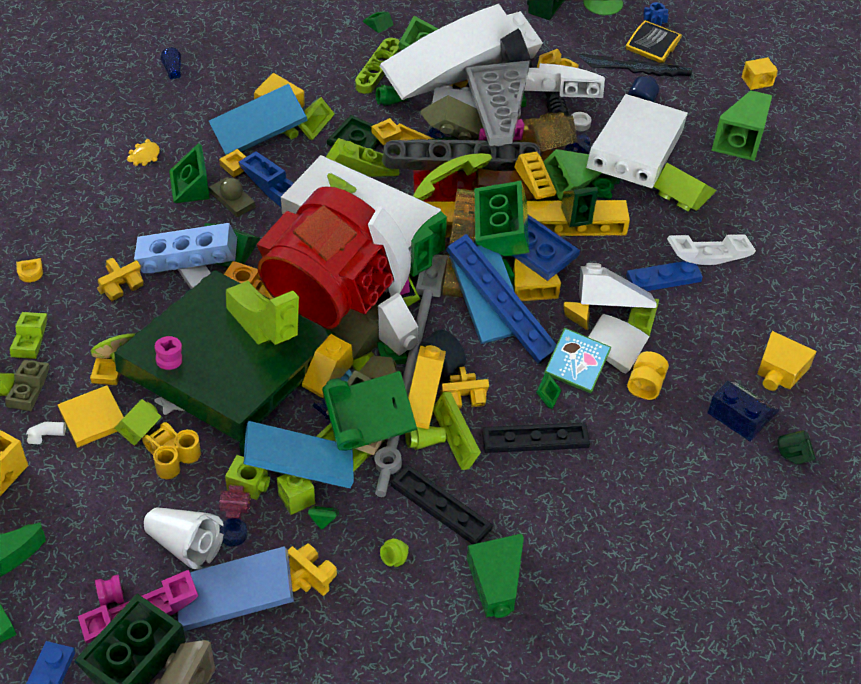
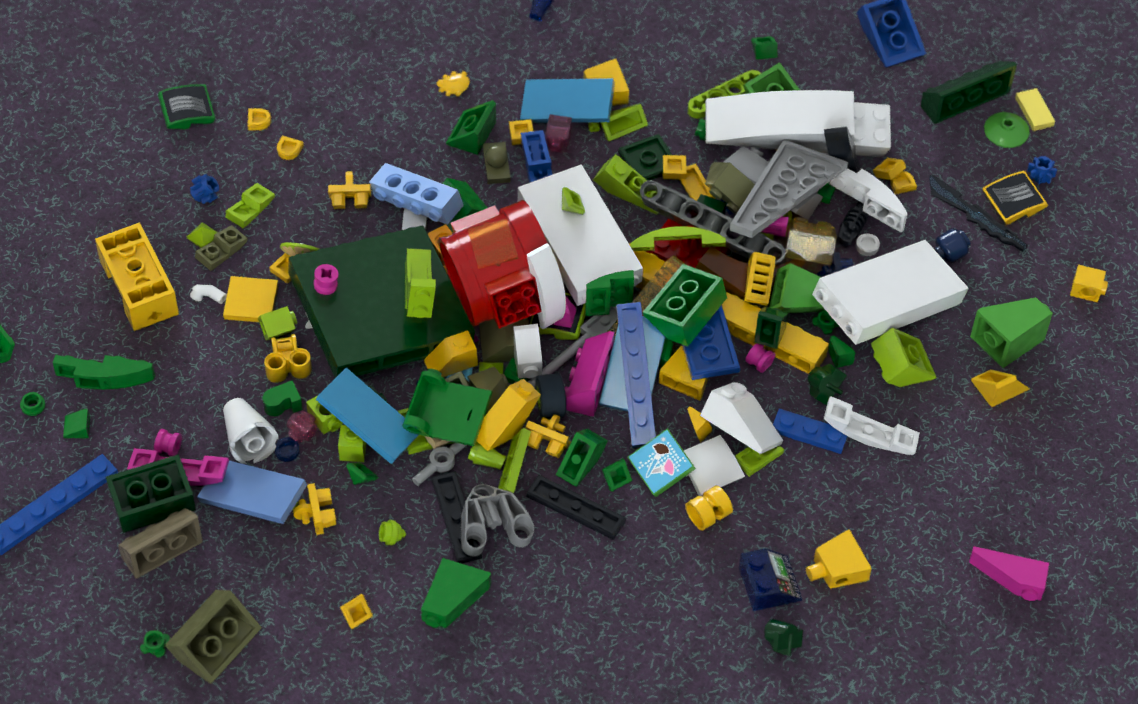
camera: 35 degrees right, 5 degrees up
(194, 487) = (282, 398): none -> green leg
(269, 146) = (558, 133): none -> clear pink brick
(423, 644) = (356, 611): none -> yellow slope
(460, 315) = (589, 374): none -> dark pink slope
(468, 485) = (495, 509): none -> light grey connector
(507, 392) = (581, 456): none -> green slope
(580, 238) = (760, 357): none -> dark pink wheel
(636, 204) = (840, 352): none -> green slope
(645, 232) = (825, 382): none -> dark green piece
(766, 172) = (998, 386): none -> yellow slope

